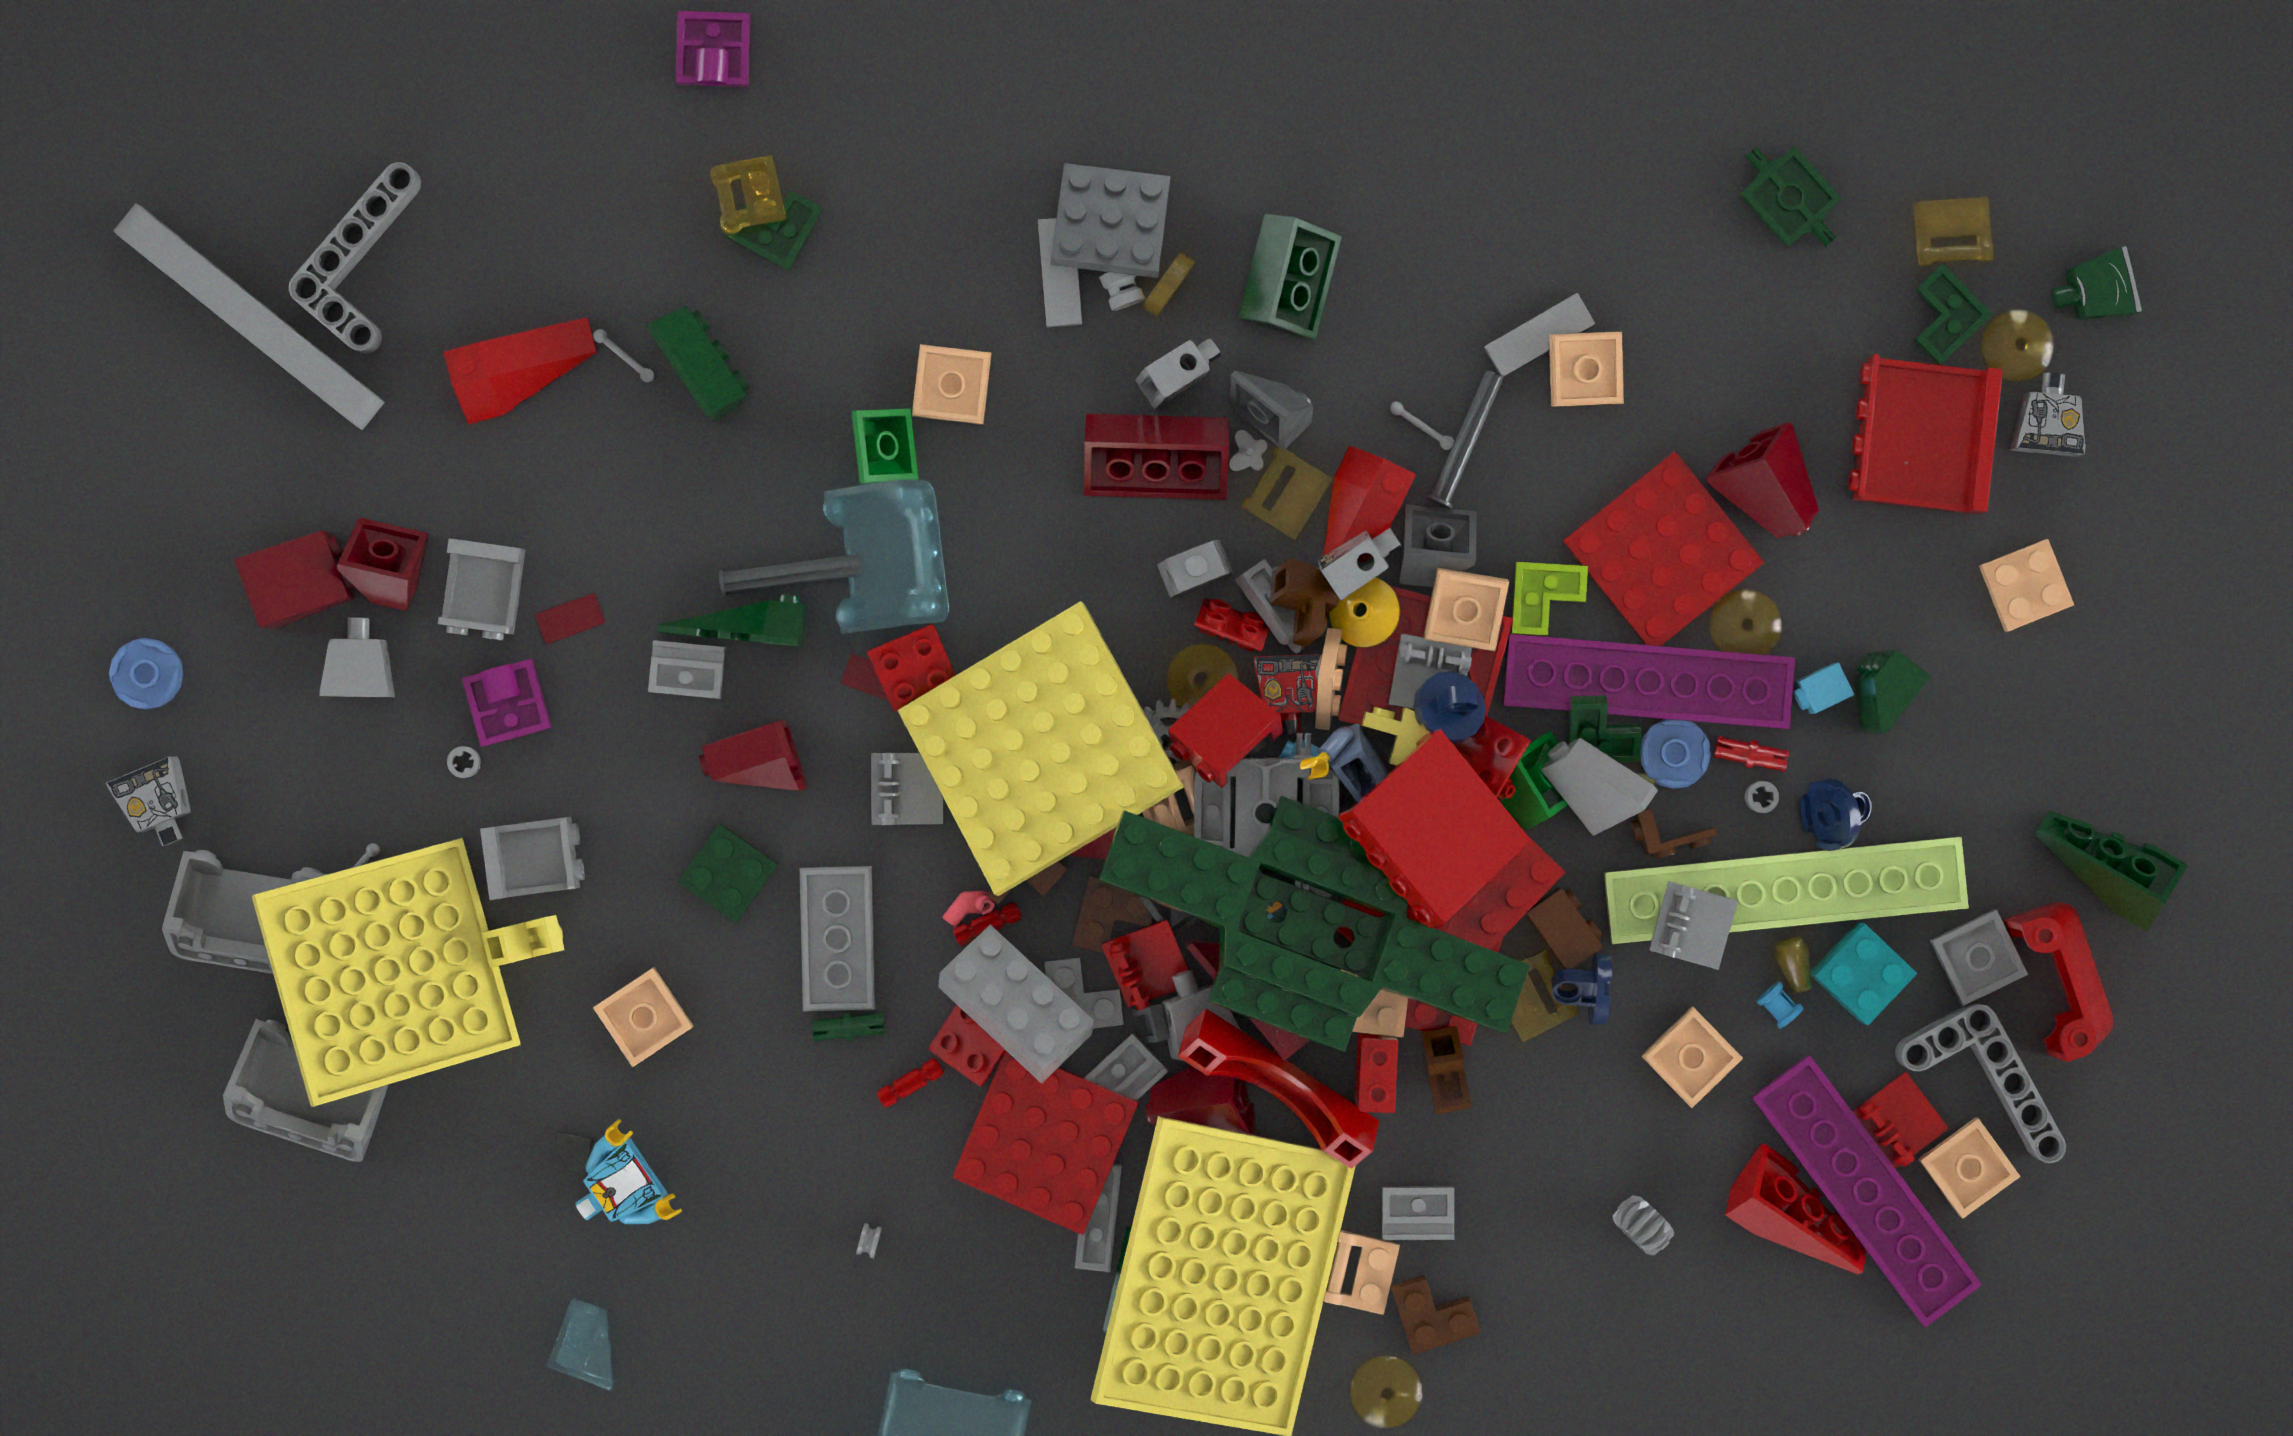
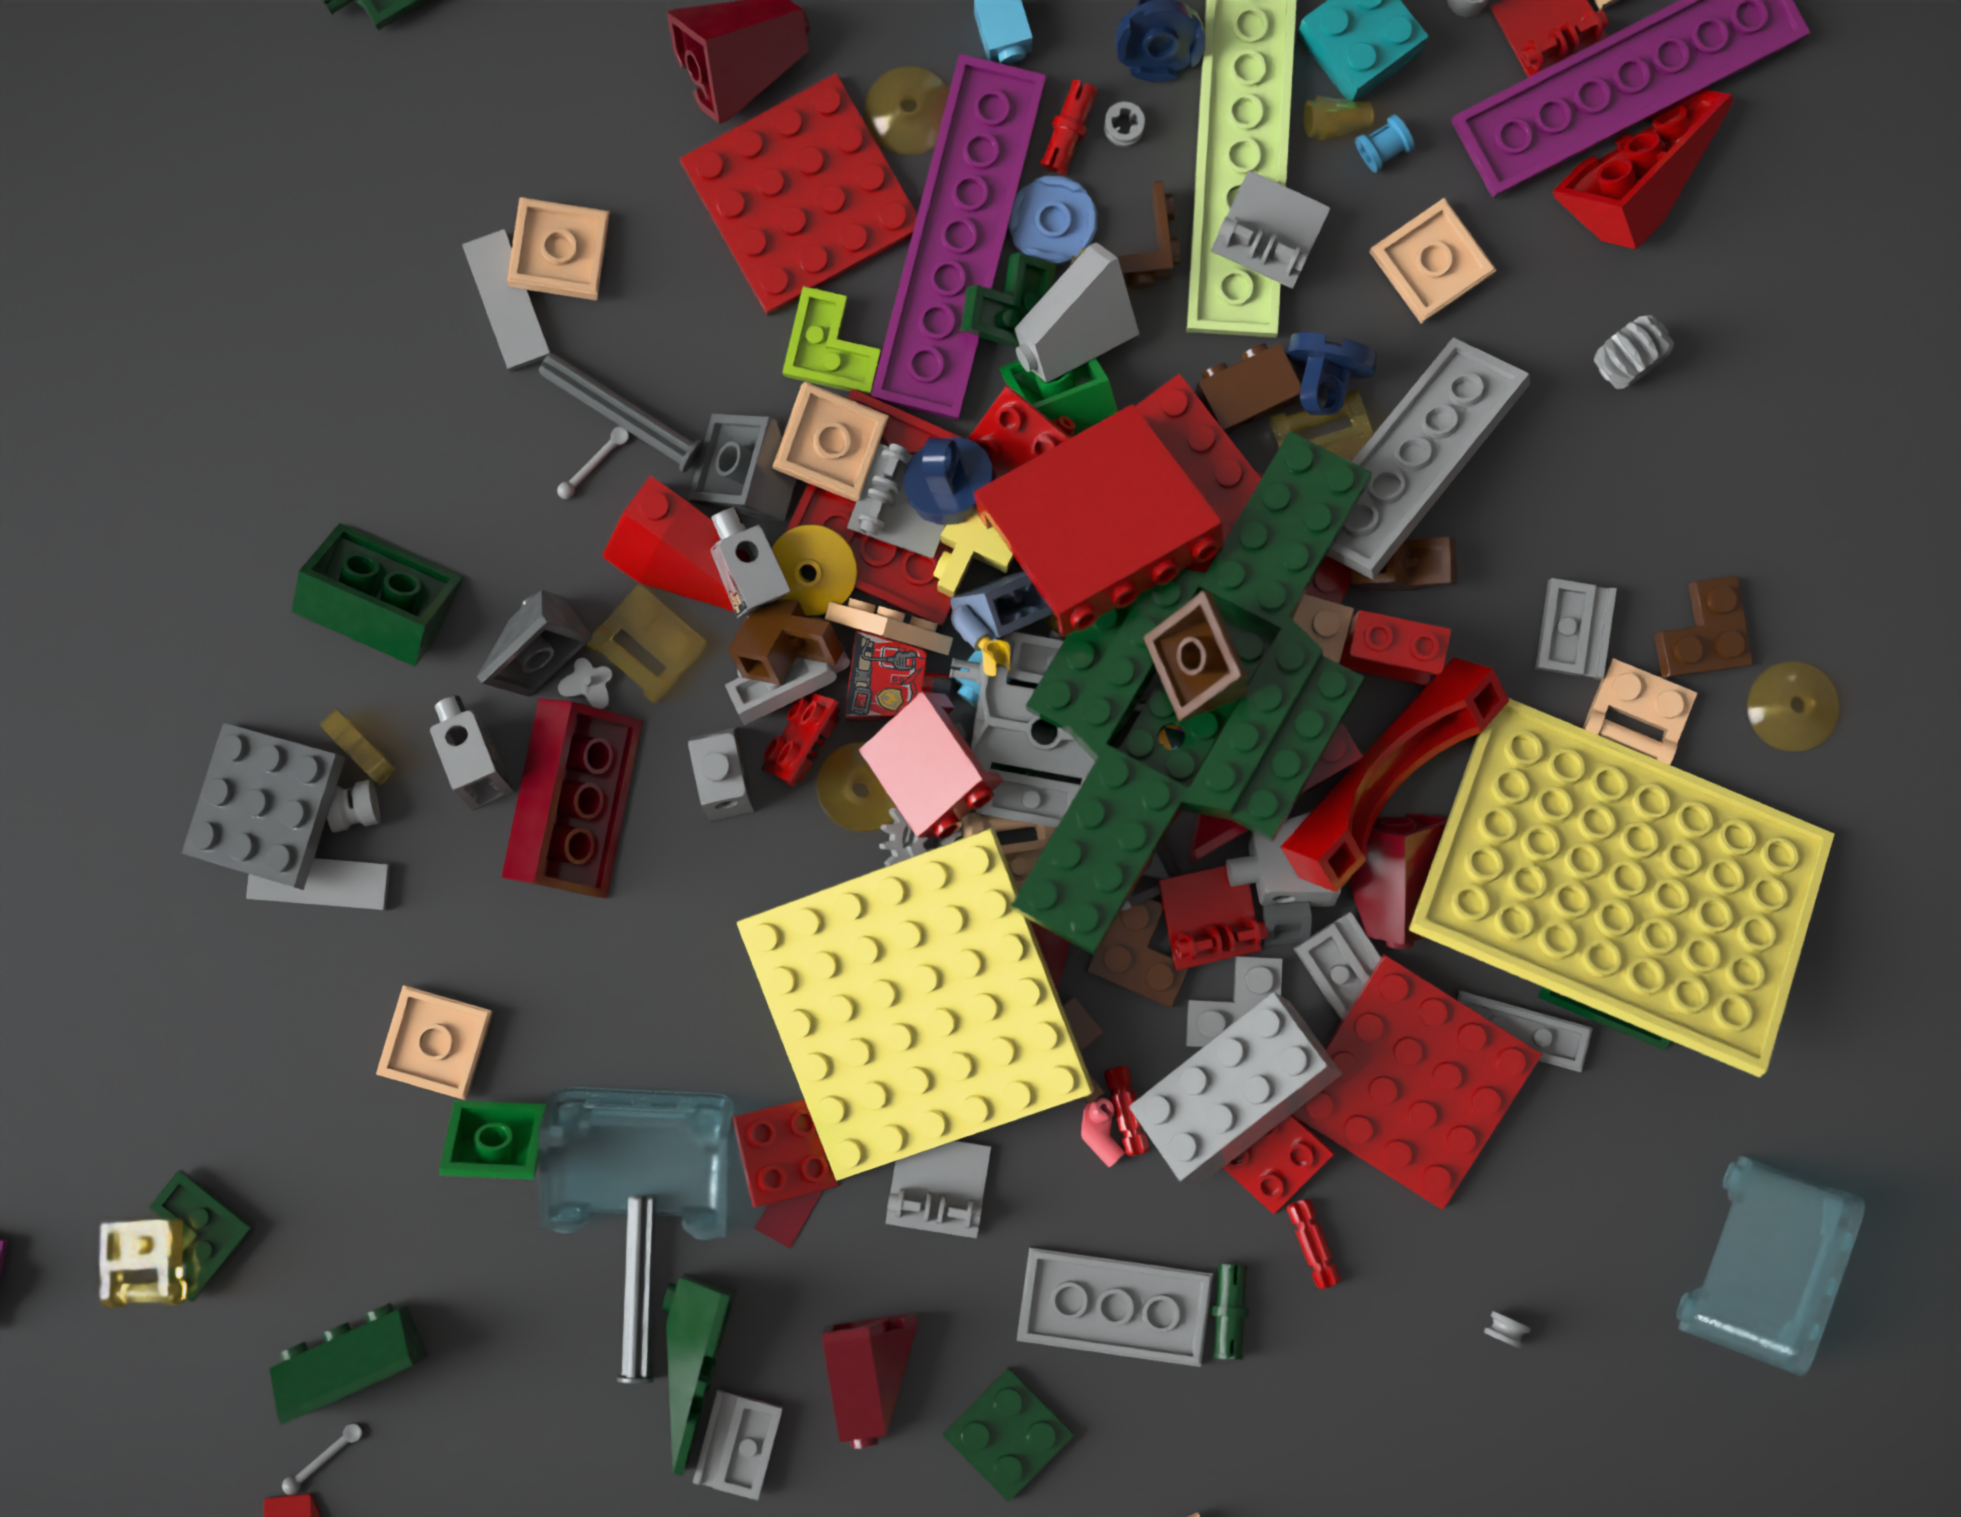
camera: 85 degrees left, 5 degrees down
(1335, 920) = (1197, 659): none -> reddish brown slope
(1536, 1072) = (1425, 449): none -> light grey plate

